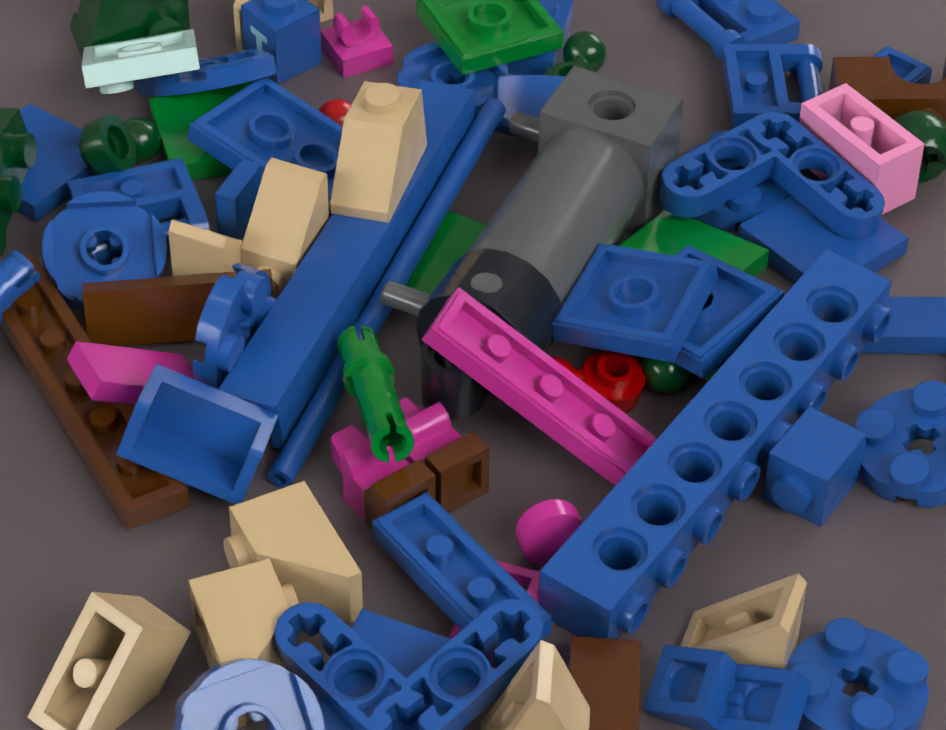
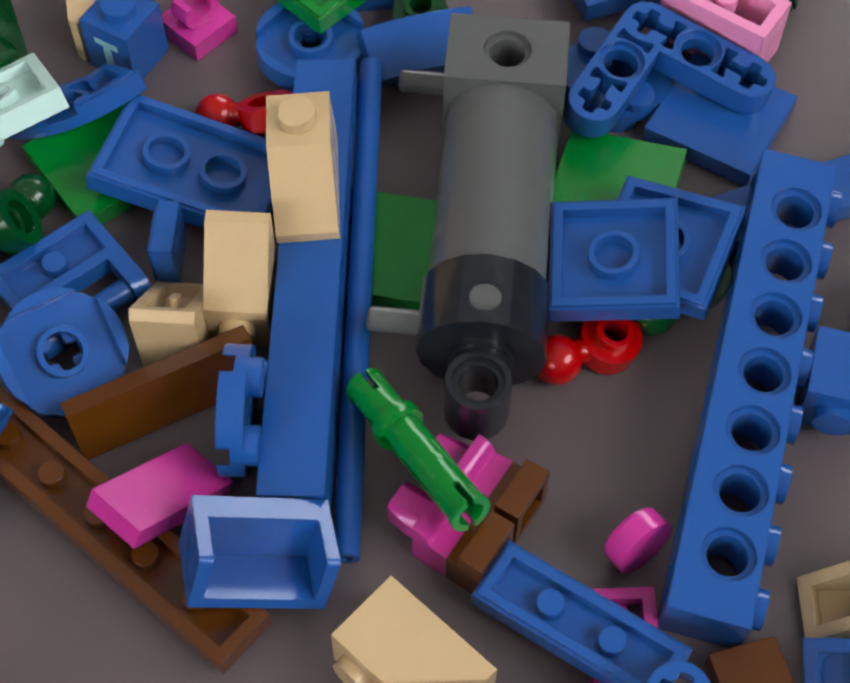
camera: 20 degrees left, 15 degrees up
(537, 387) = (572, 391): dark pink tile -> none

